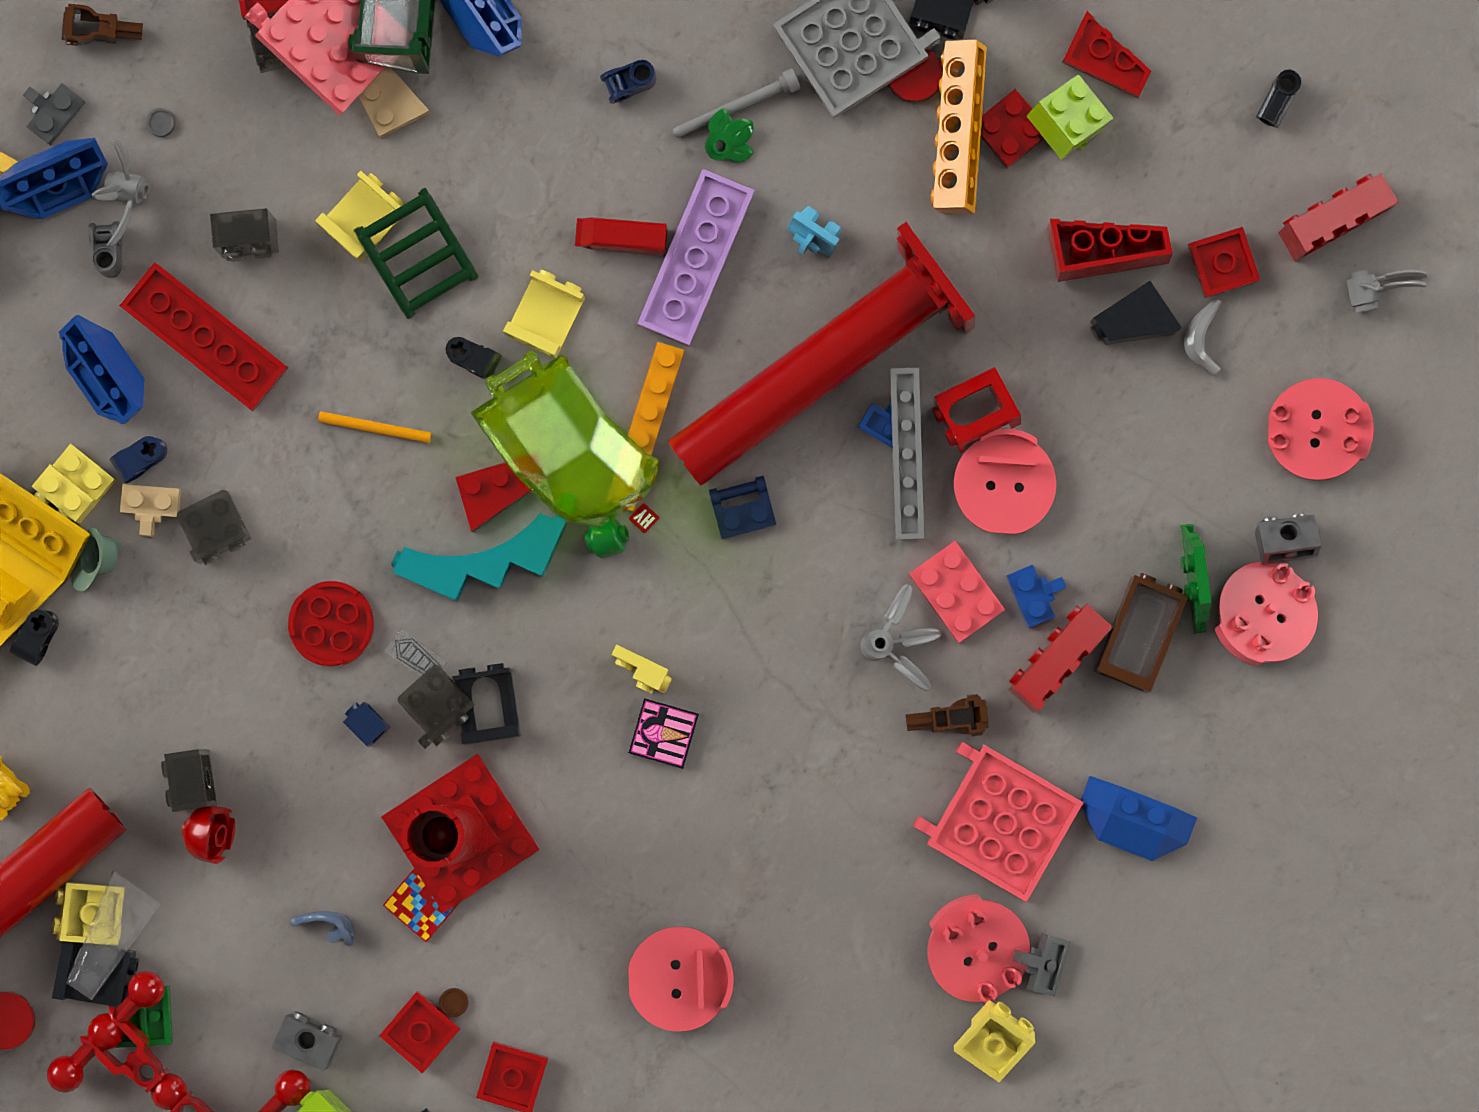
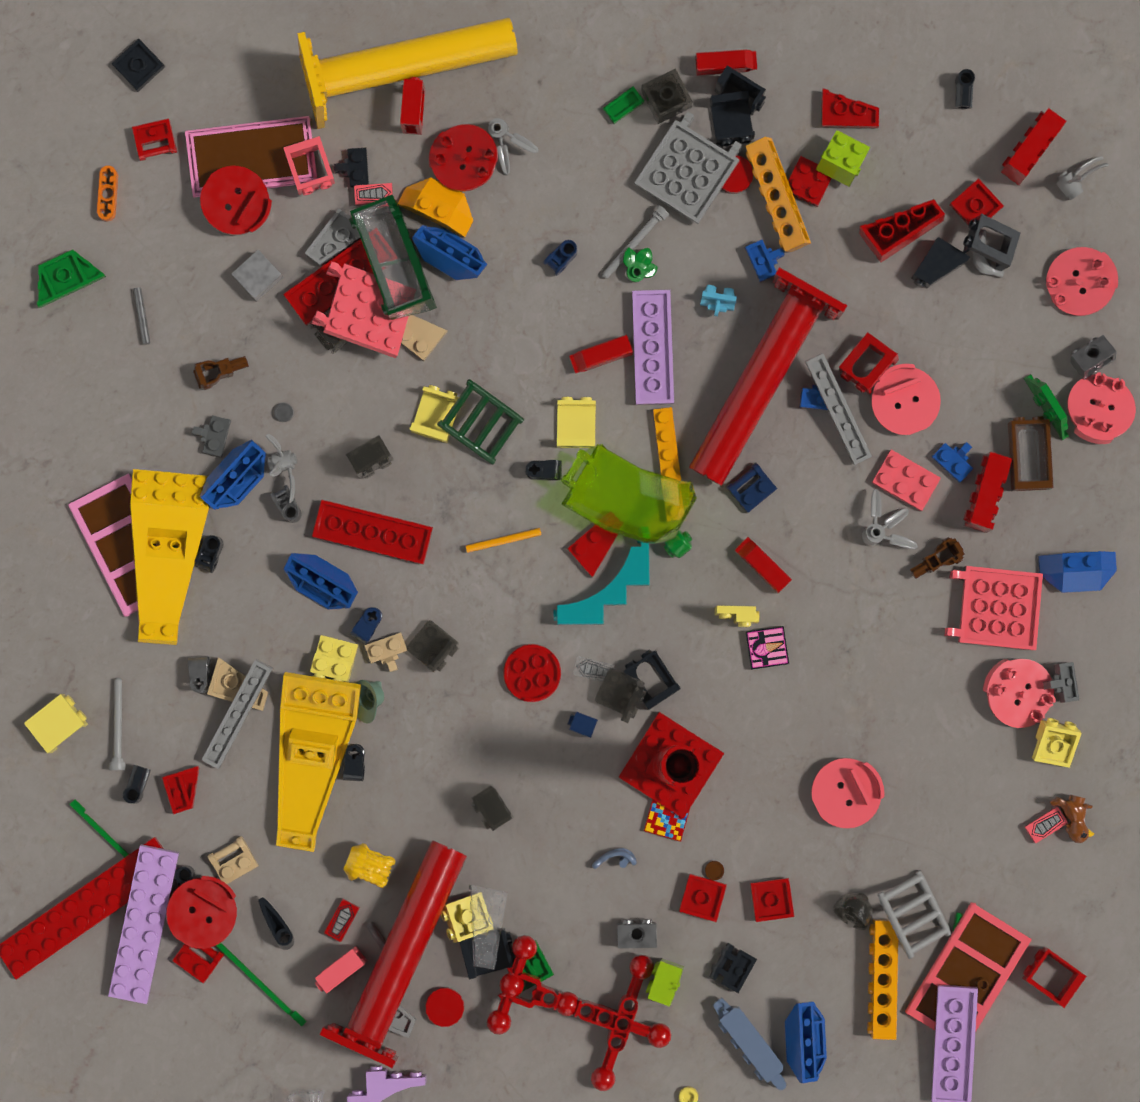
camera: 20 degrees left, 0 degrees up
(209, 833) = (517, 835): red cylinder -> none
(644, 518) = (694, 521): red sticker -> none
(708, 618) = (763, 565): none -> red piece
(900, 205) = (763, 259): none -> blue hinge
(1193, 311) = (1003, 257): none -> black panel

